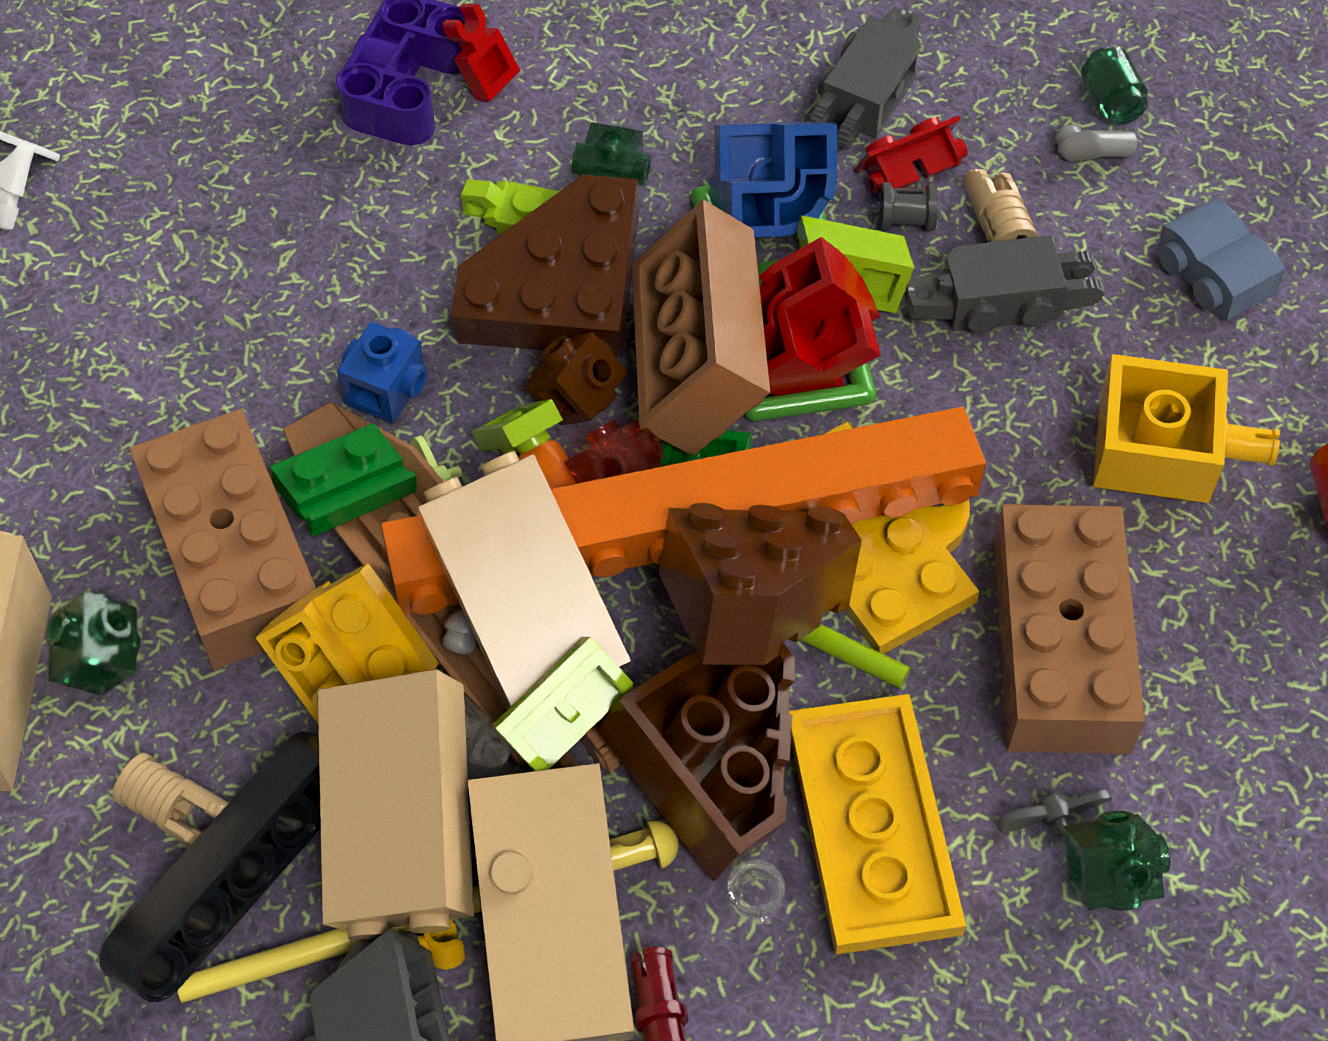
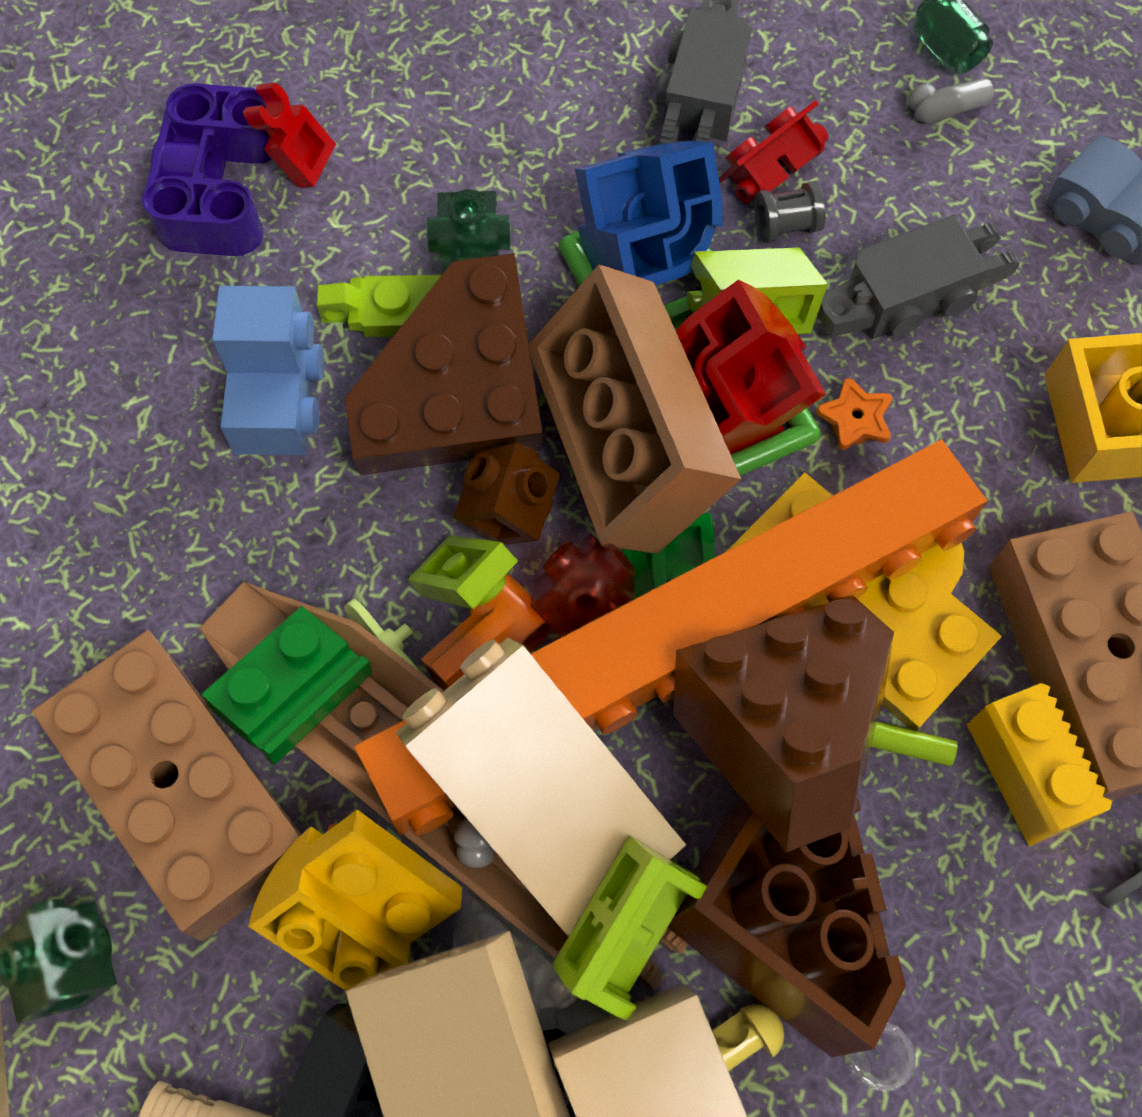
camera: 15 degrees left, 10 degrees up
(382, 371) = (292, 536): blue brick -> none
(404, 235) = (269, 369): none -> medium blue brick
(874, 825) = (984, 945): yellow plate -> none
(913, 401) = (854, 430): none -> orange plate
(971, 695) = (1037, 764): none -> yellow brick
(998, 206) = (883, 194): tan hinge -> none

